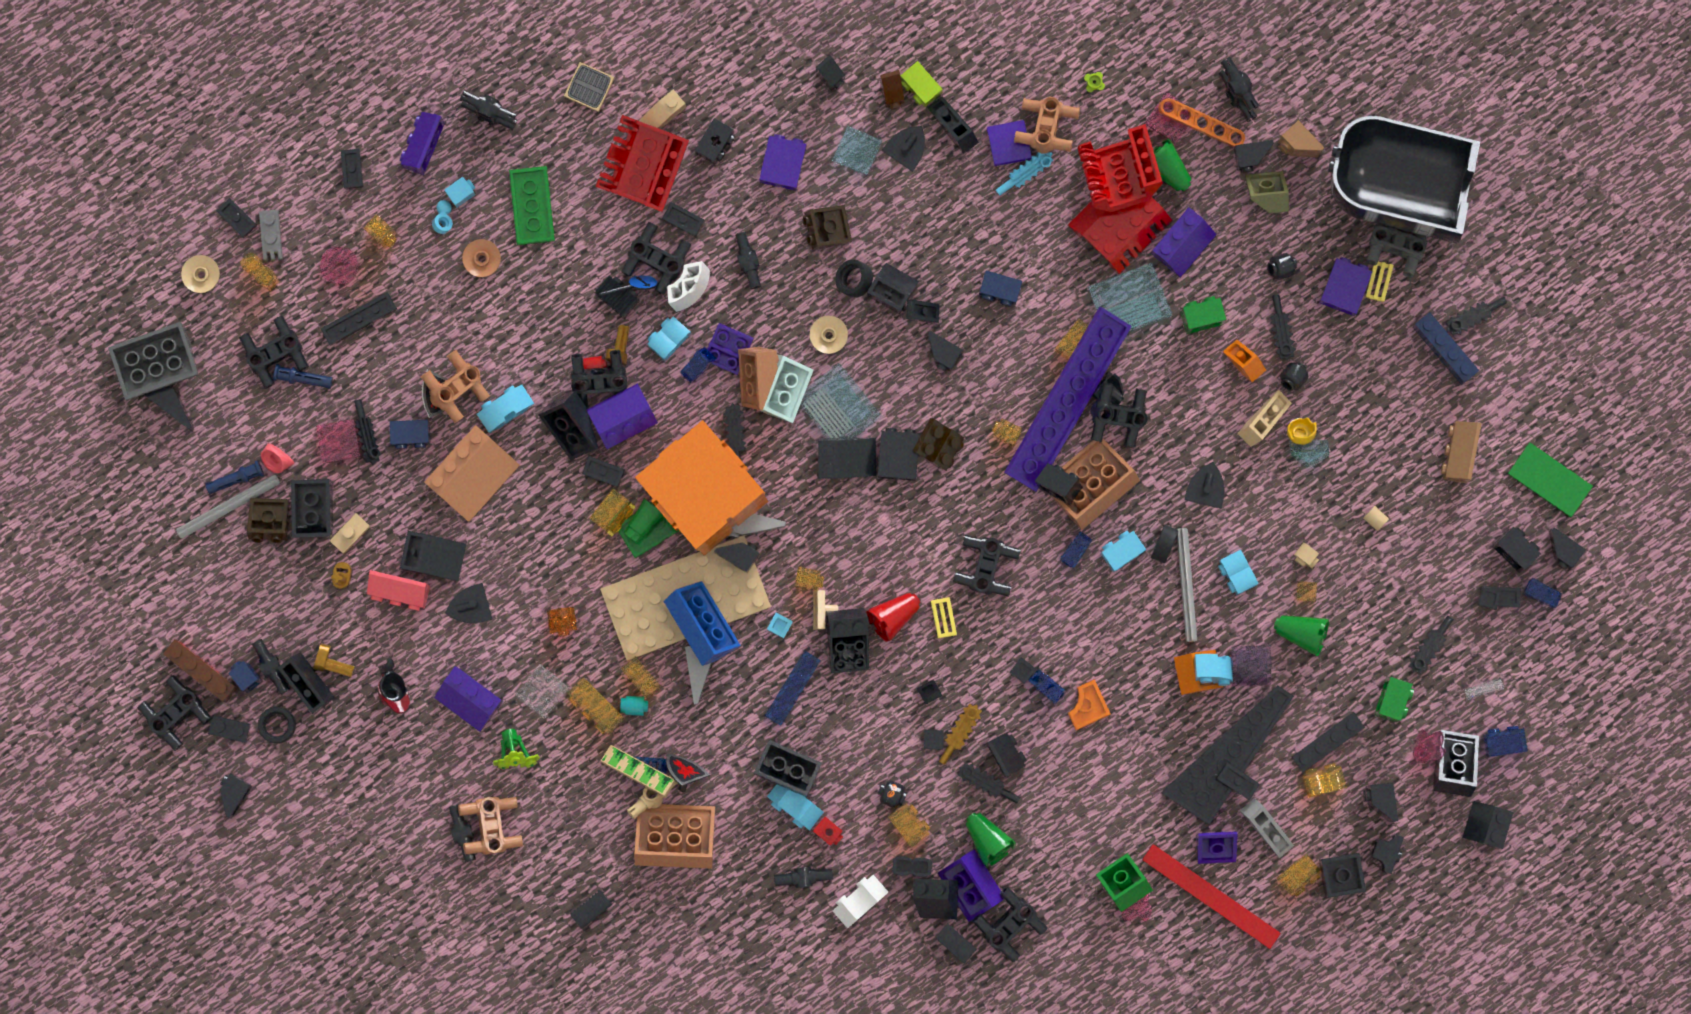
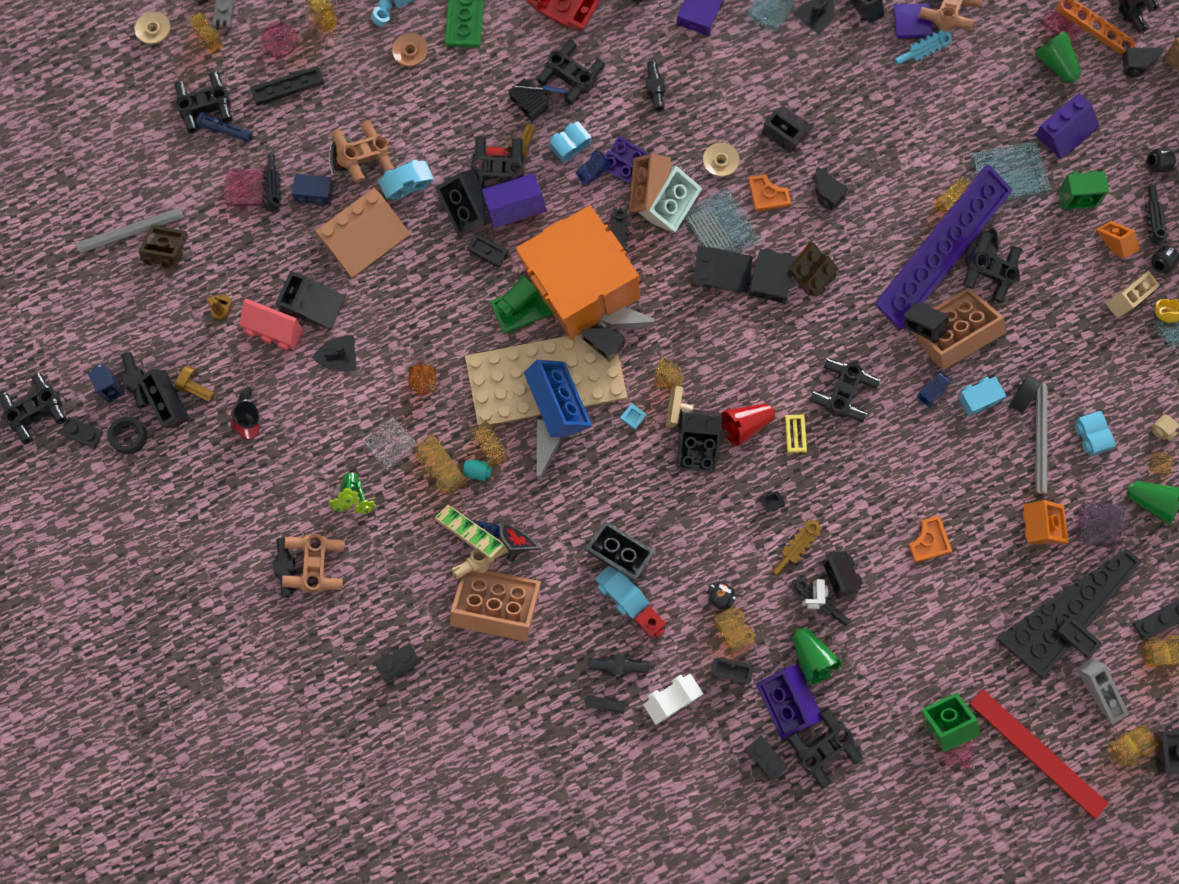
camera: 10 degrees right, 10 degrees down
(154, 360) = (90, 88): dark grey slope -> none
(170, 402) = (97, 129): black slope -> none
(200, 670) = (66, 373): reddish brown brick -> none
(233, 793) = (69, 494): black slope -> none
(243, 474) = (151, 204): dark blue pin -> none
(275, 459) = (183, 195): coral piece -> none
(312, 508) = (206, 239): black brick -> none
(350, 533) = (237, 271): tan tile -> none
(468, 698) = (317, 438): dark purple slope -> none
(612, 512) = (489, 286): clear yellow brick -> none
(683, 219) = (601, 43): black plate -> none
(689, 286) = (596, 98): white brick -> none
(792, 688) = (636, 478): clear blue plate -> none
(796, 916) = (605, 704): none -> black axle
(827, 227) = (733, 67): dark brown plate -> none
(843, 273) = (745, 106): black tyre -> none
(881, 365) = (767, 195): none -> orange tile
(922, 311) = (813, 150): black plate -> none
(933, 739) = (770, 549): black tile -> none
(936, 898) = (752, 707): black slope -> none
(986, 777) = (820, 591): none -> white bracket
(1000, 288) = (889, 142): dark blue brick -> none
(1006, 432) = (879, 270): clear yellow brick -> none
(1022, 670) = (868, 495): black plate -> none
(1047, 686) = (891, 514): clear blue leg -> none
(1120, 230) = (1012, 100): red slope -> none
(1121, 172) = (1023, 53): red slope -> none
(1206, 487) = (1069, 350): black shield -> none
(1213, 669) = (1064, 518): medium azure brick -> none
(1216, 847) = (1049, 701): dark purple slope -> none
(1269, 191) = (1157, 94): olive slope -> none

